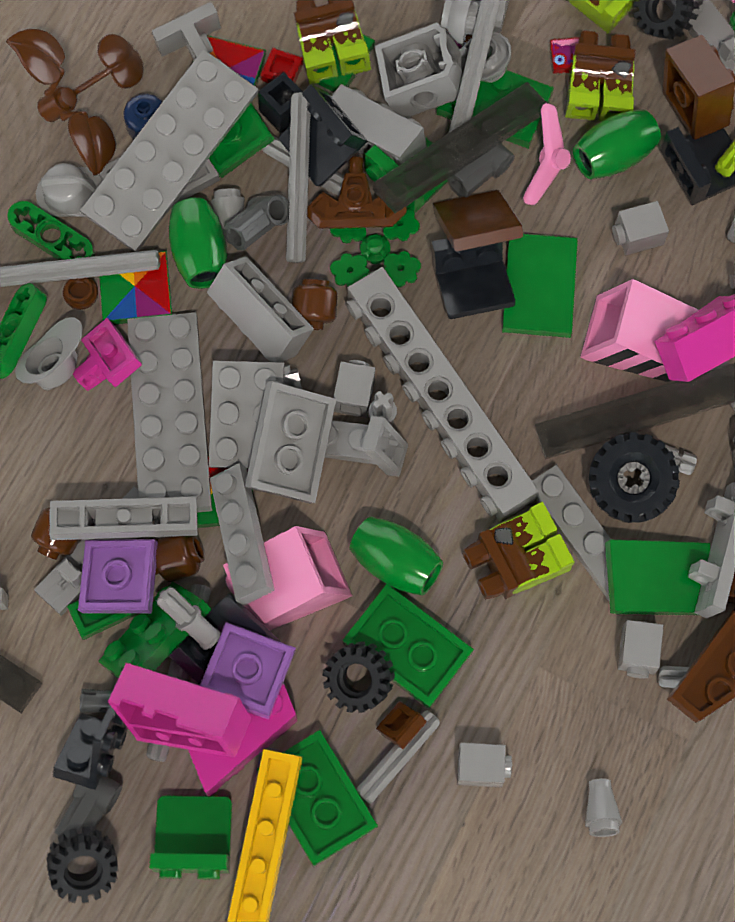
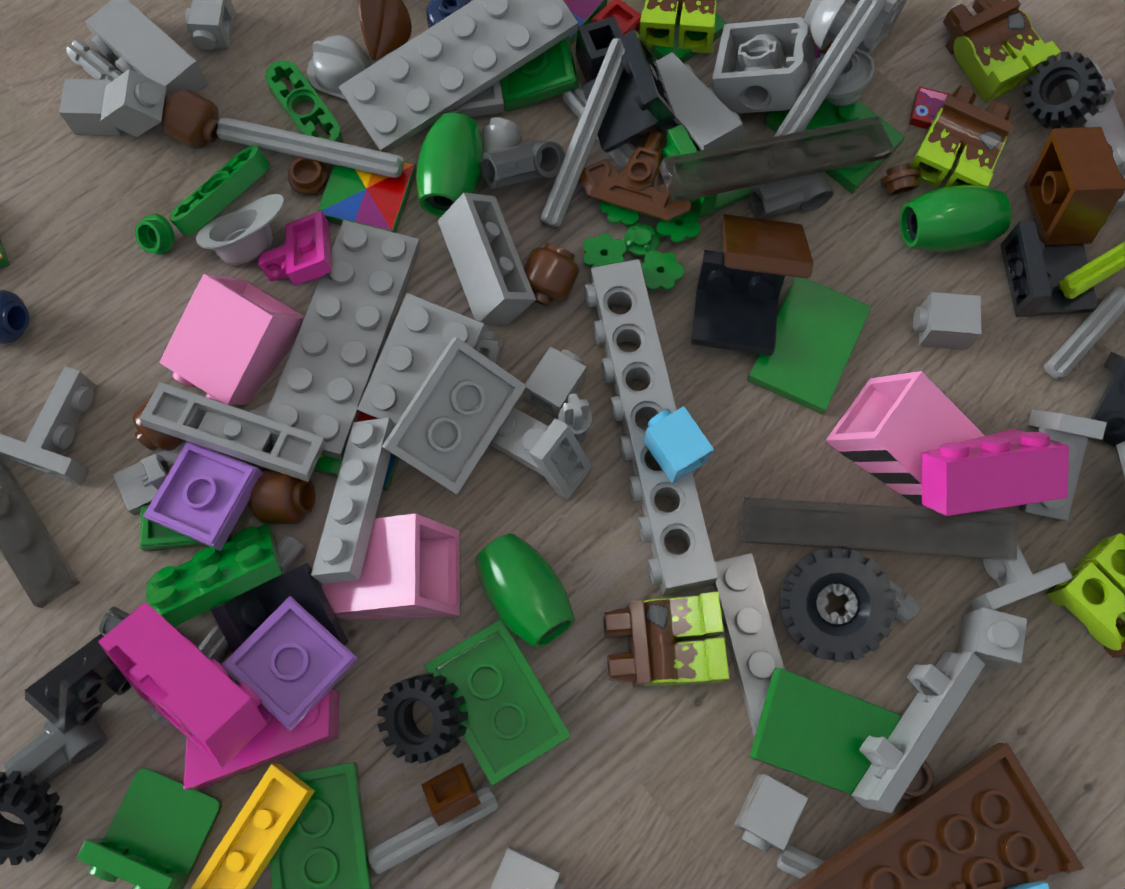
camera: 20 degrees right, 0 degrees up
(82, 449) = (230, 339): none -> bright pink slope
(188, 618) = (244, 574): light grey axle -> none
(469, 401) = (677, 443): none -> medium azure brick
(552, 156) = (875, 209): bright pink piece -> none
(567, 123) = (900, 179): none -> reddish brown plate

